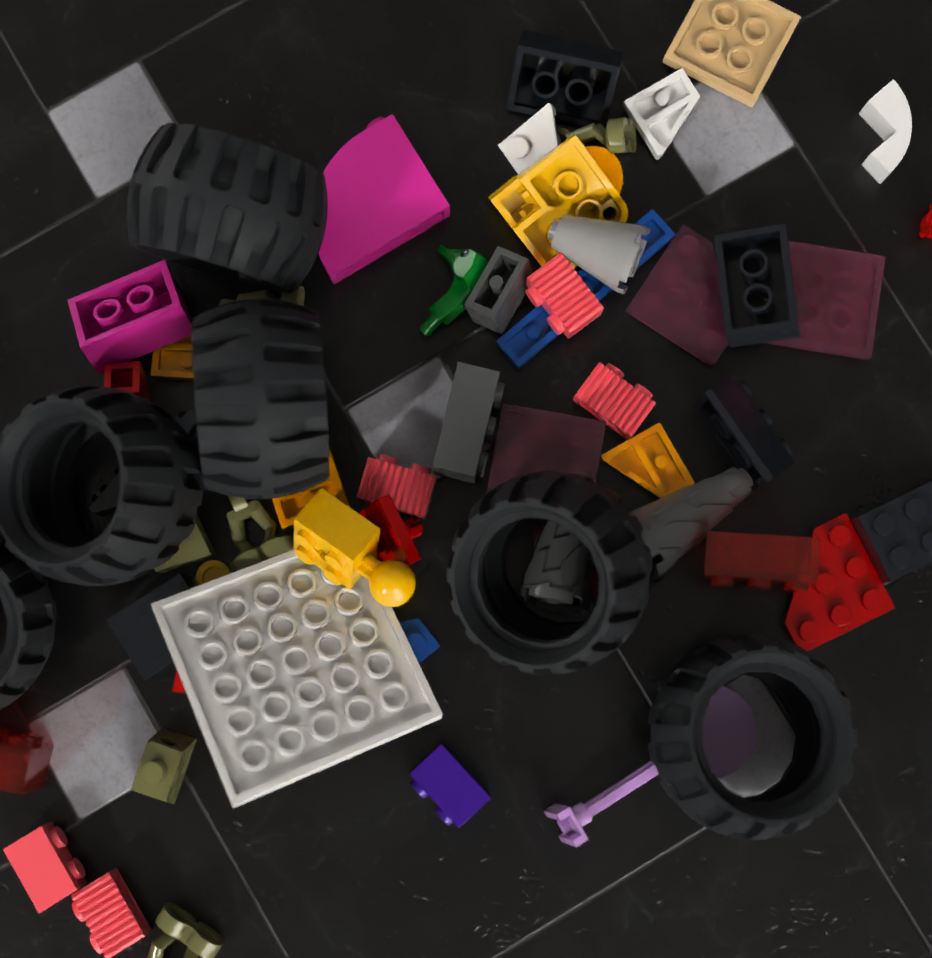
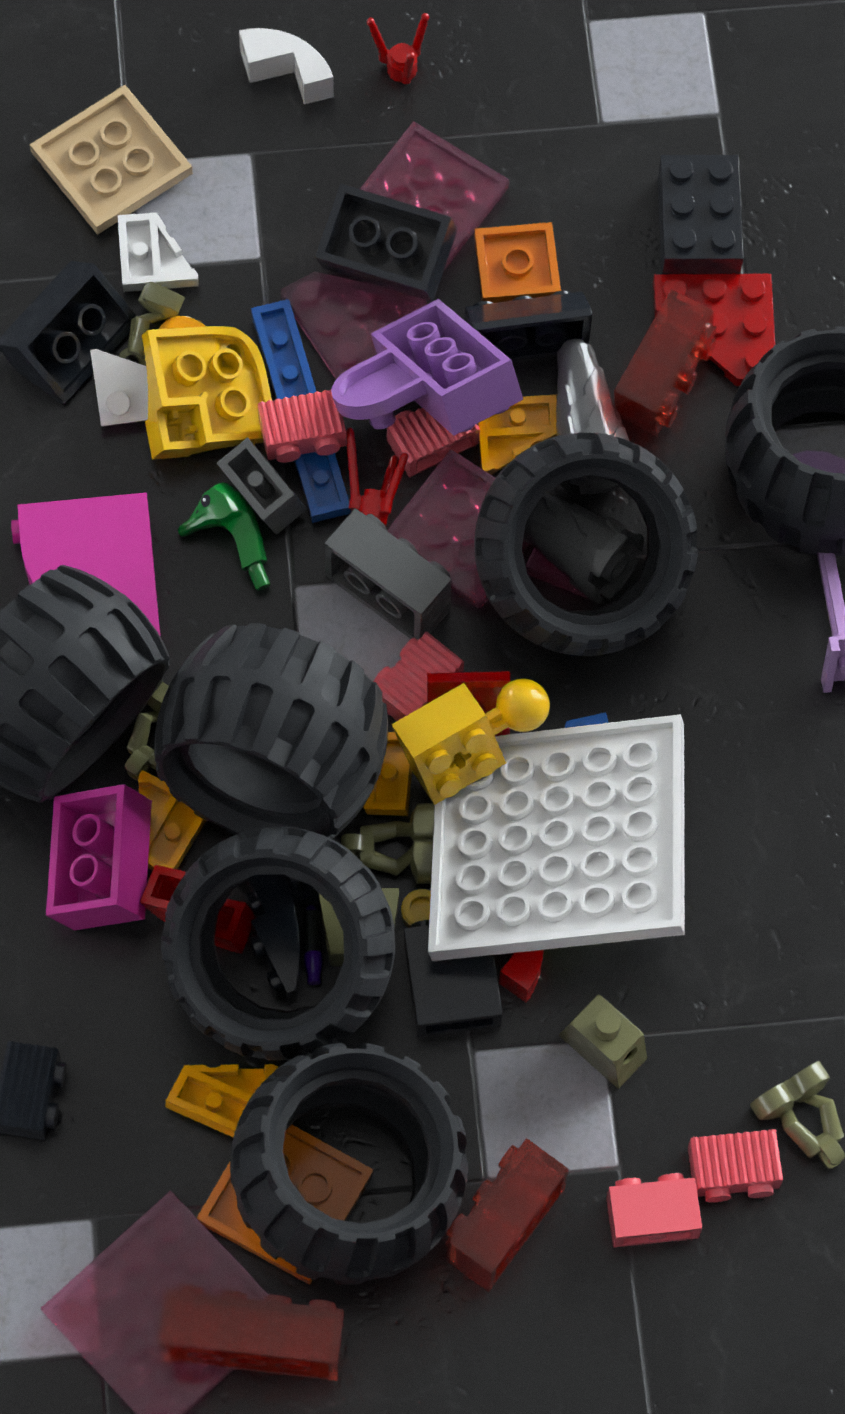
camera: 70 degrees left, 15 degrees down
(449, 786) = (755, 764): dark purple brick -> none
(528, 385) = (374, 501): none -> red plant
(600, 247) = (273, 363): light grey cone -> none
(661, 372) = (431, 361): none -> medium lavender brick
(800, 398) = (516, 261): none -> orange plate

